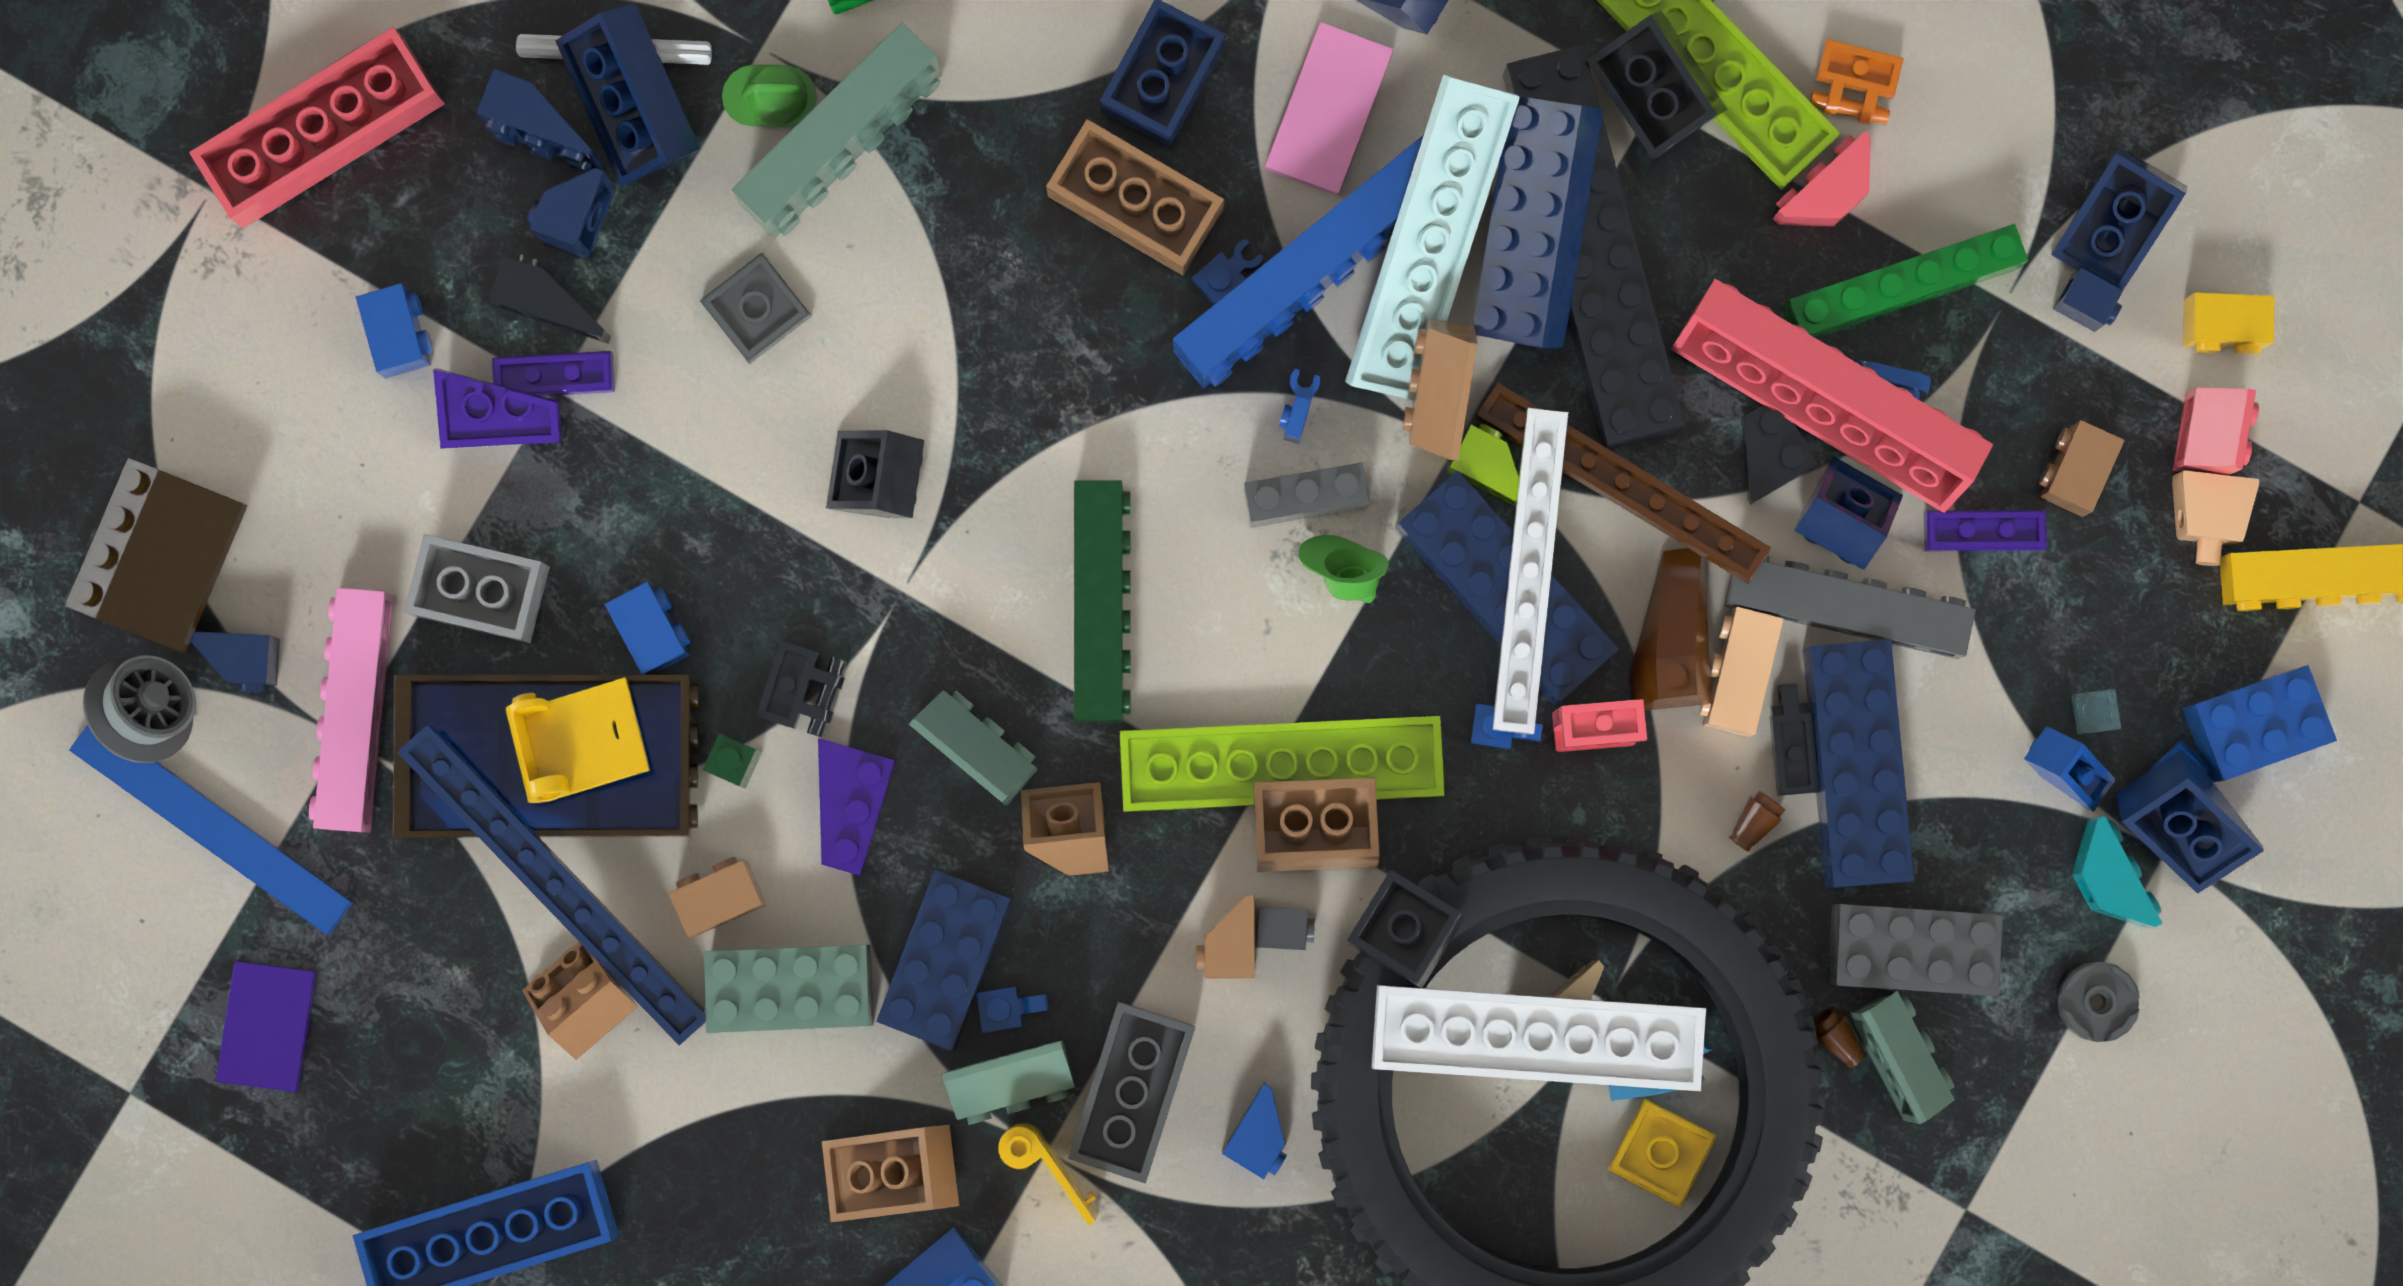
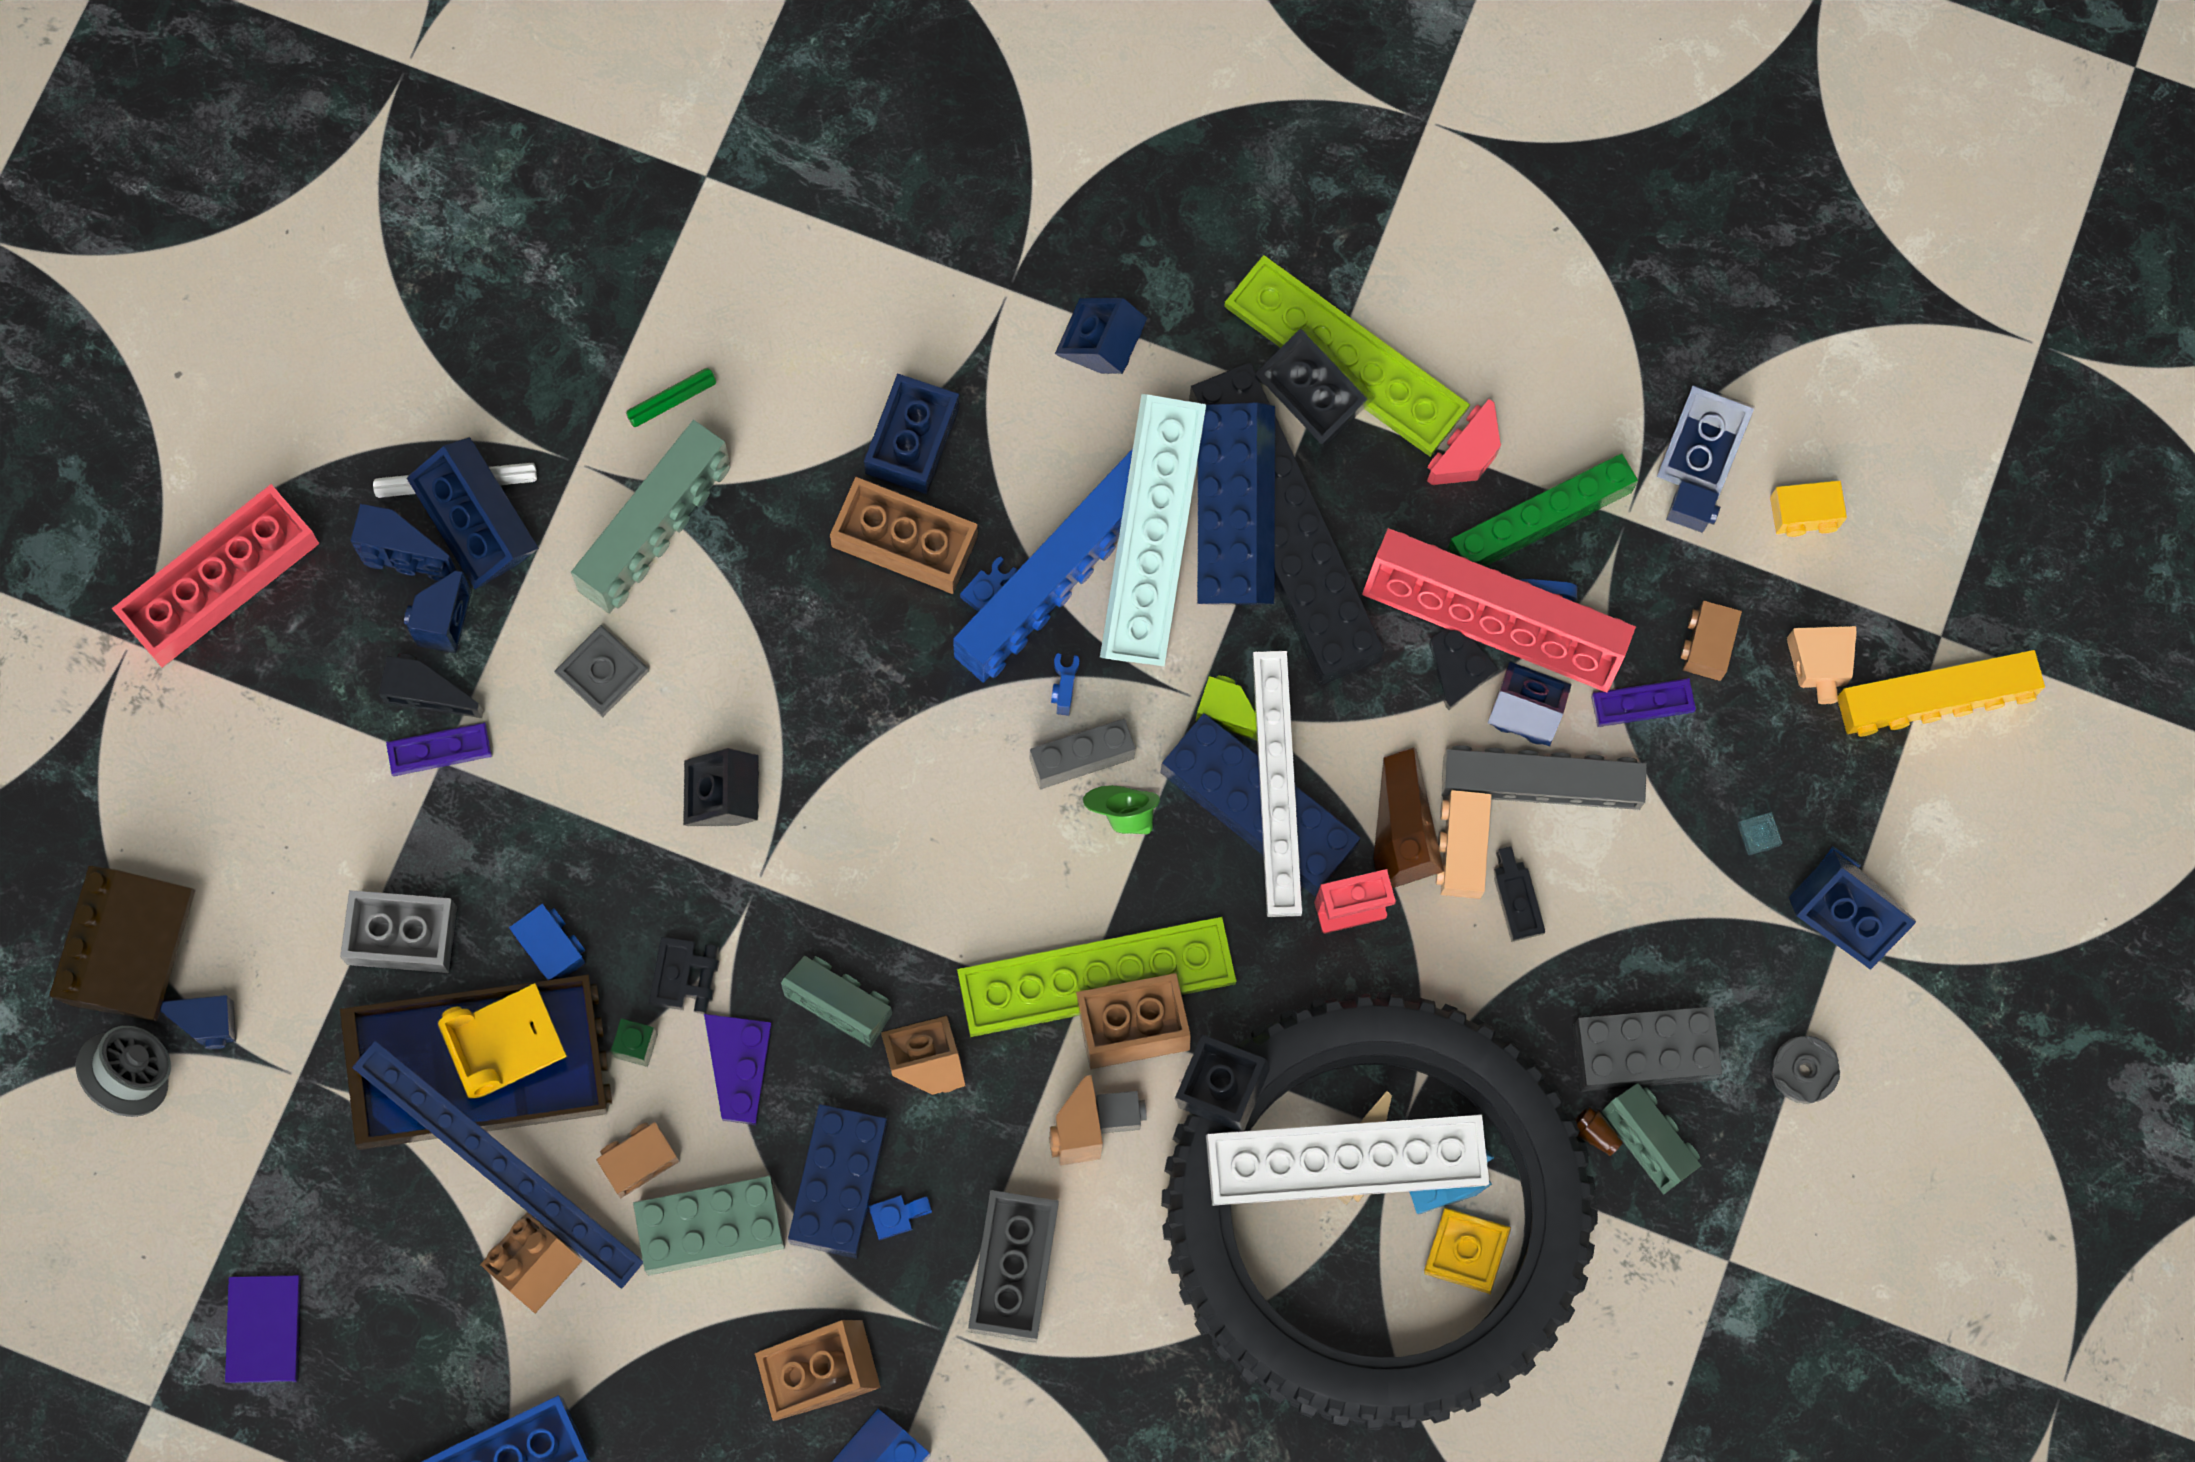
camera: 15 degrees left, 10 degrees down
(220, 833) = (197, 1168): blue tile -> none
(352, 710) = (304, 1050): bright pink brick -> none
(394, 330) = (300, 731): blue brick -> none
(490, 414) = (392, 788): dark purple wing -> none
(769, 95) = (588, 499): bright green piece -> none
(1010, 1082) = (909, 1273): sand green slope -> none
(1025, 1145) = (931, 1324): yellow door -> none
(1099, 601) = (924, 867): dark green brick -> none
(1258, 1137) = (1126, 1289): blue slope -> none
(1329, 109) = (1051, 445): bright pink tile -> none
(1441, 387) = (1179, 648): medium nougat slope -> none
(1484, 735) = (1273, 927): blue plate -> none
(1636, 491) = (1354, 709): reddish brown plate -> none
(1756, 821) = (1498, 963): reddish brown cone -> none
(1858, 70) = (1478, 354): orange plate -> none
(1858, 764) = (1574, 905): dark blue brick -> none
(2070, 767) = (1747, 881): blue slope -> none
(2111, 878) = (1797, 967): teal slope -> none
(2216, 430) = (1814, 592): coral slope -> none
(2259, 724) = (1894, 822): blue brick -> none

